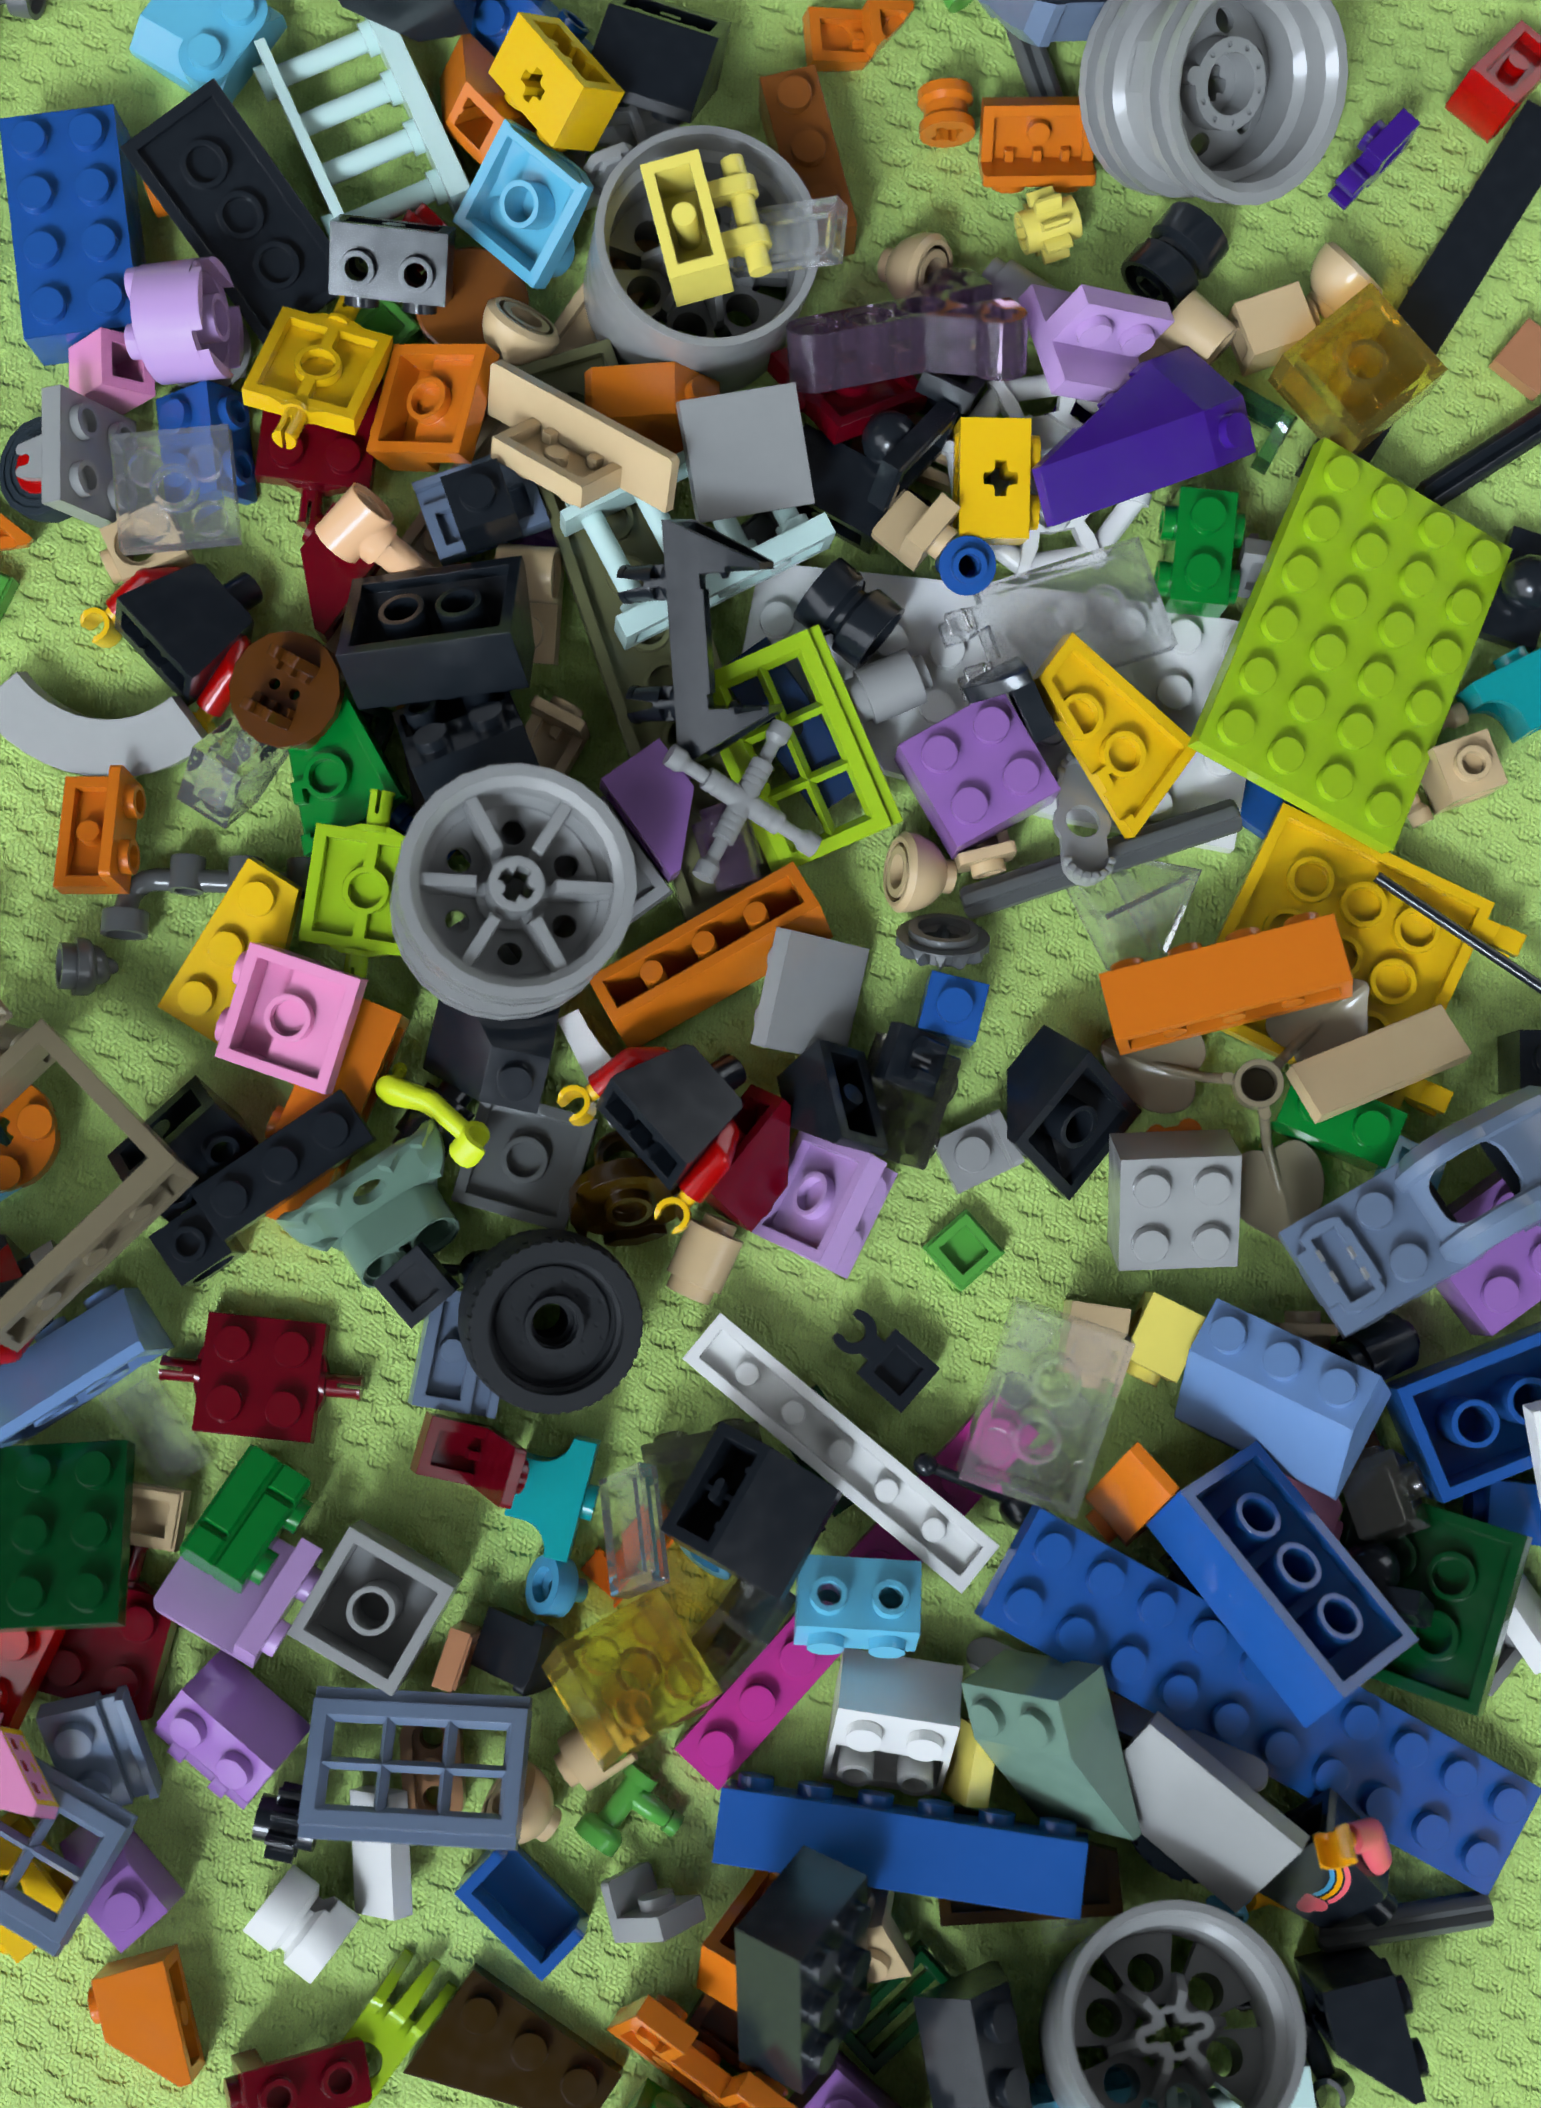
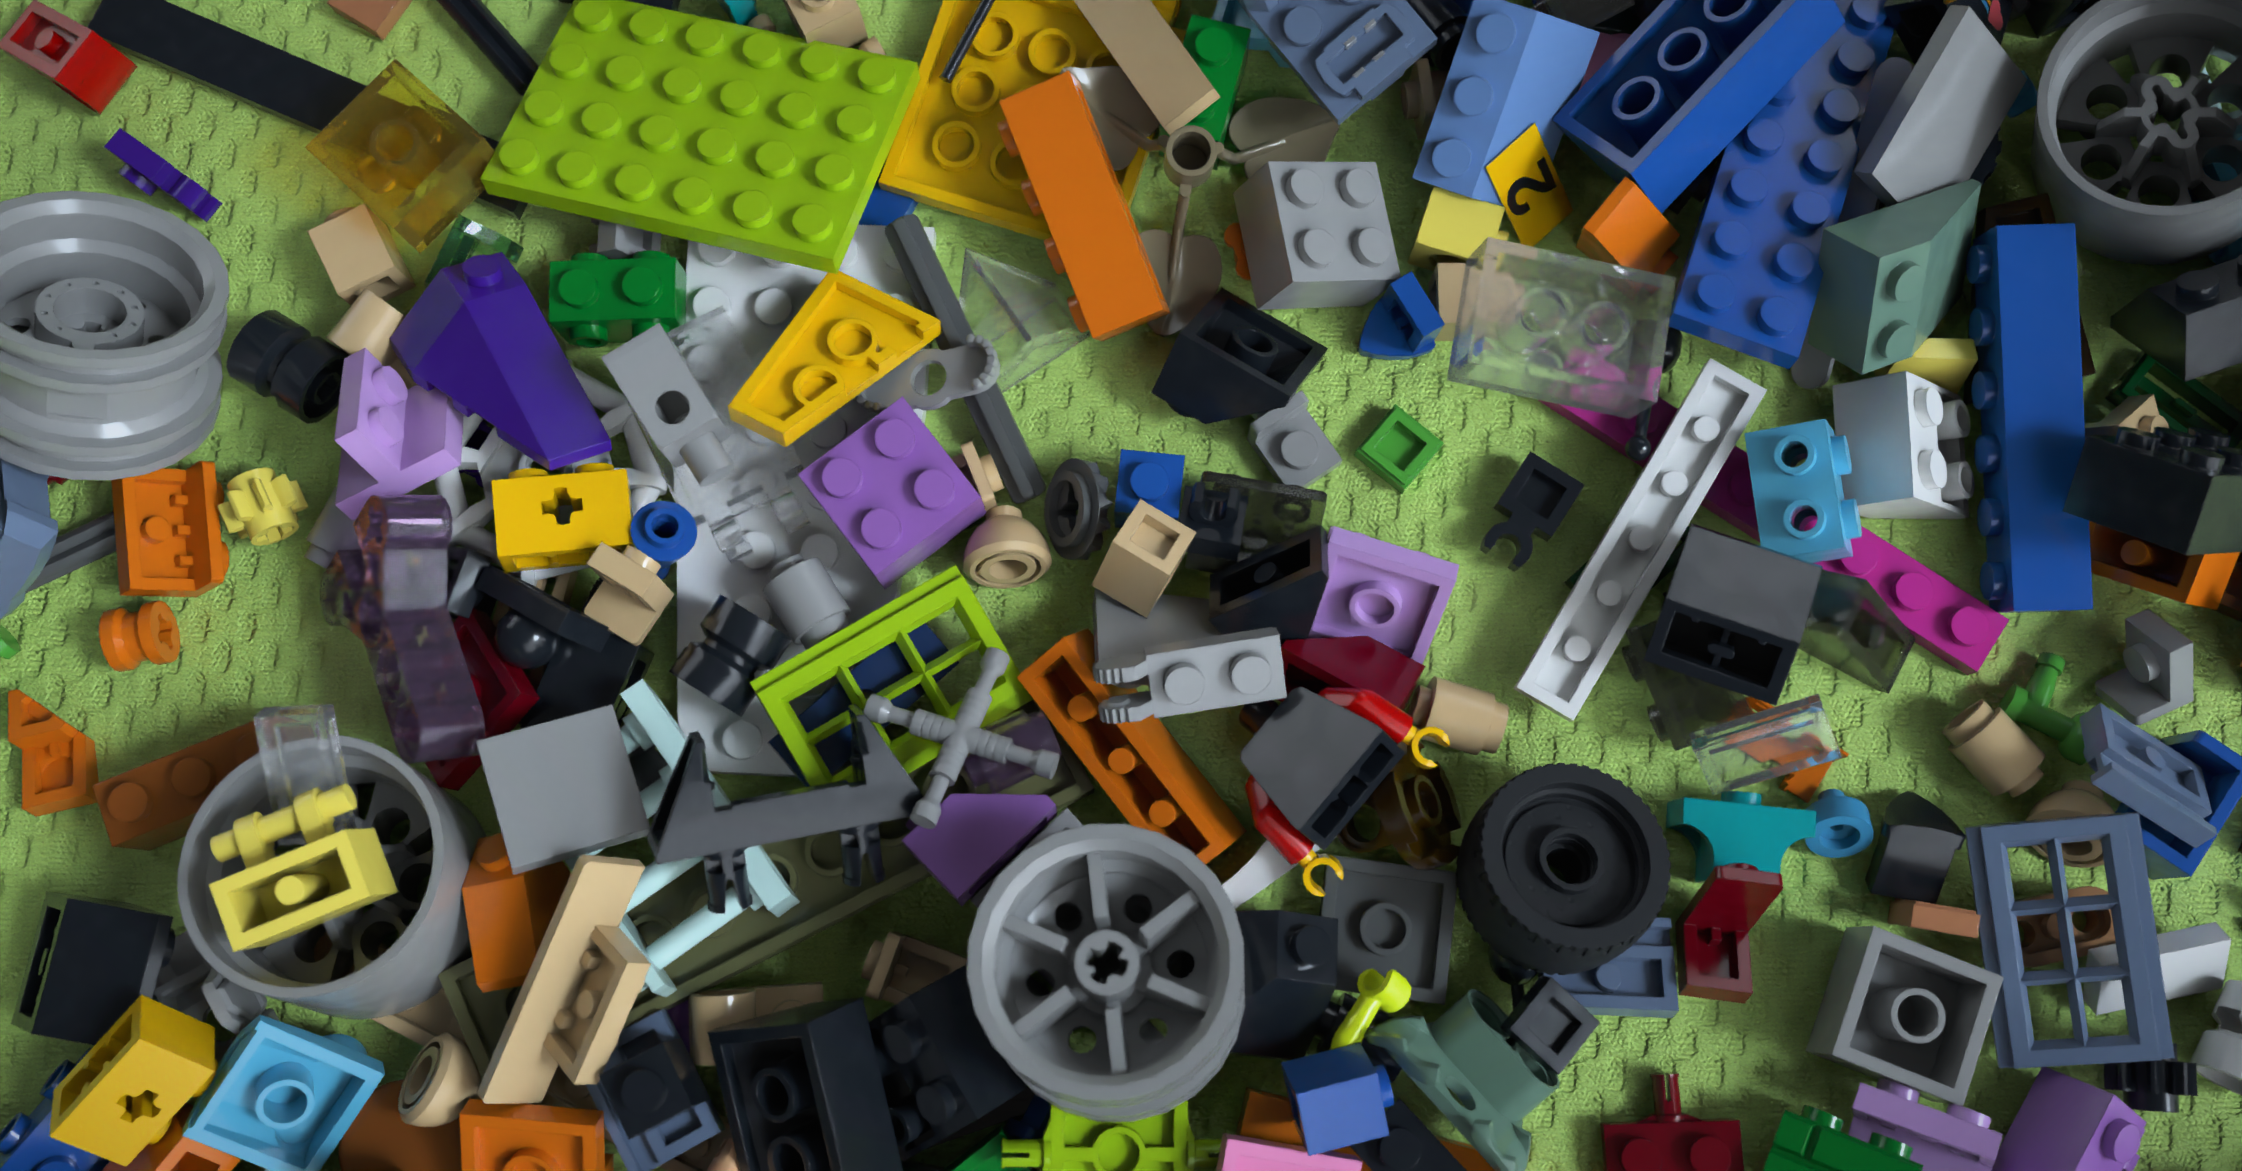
camera: 90 degrees left, 5 degrees down
(381, 1081) = (1337, 1098): none -> blue brick
(550, 1873) = (2147, 775): none -> sand blue plate
(630, 1679) = (1927, 720): clear yellow brick -> none
(765, 1011) = (1195, 675): none -> light grey hinge
(884, 989) = (1143, 558): none -> tan brick
(912, 261) = (321, 649): tan brick -> none
(1015, 680) = (789, 458): black tile -> none
(1079, 1267) = (1401, 323): none -> blue tile
(1098, 570) = (664, 391): none -> light grey torso
(1196, 1412) = (1529, 187): none -> yellow sticker
(1335, 279) = (302, 193): tan brick -> none

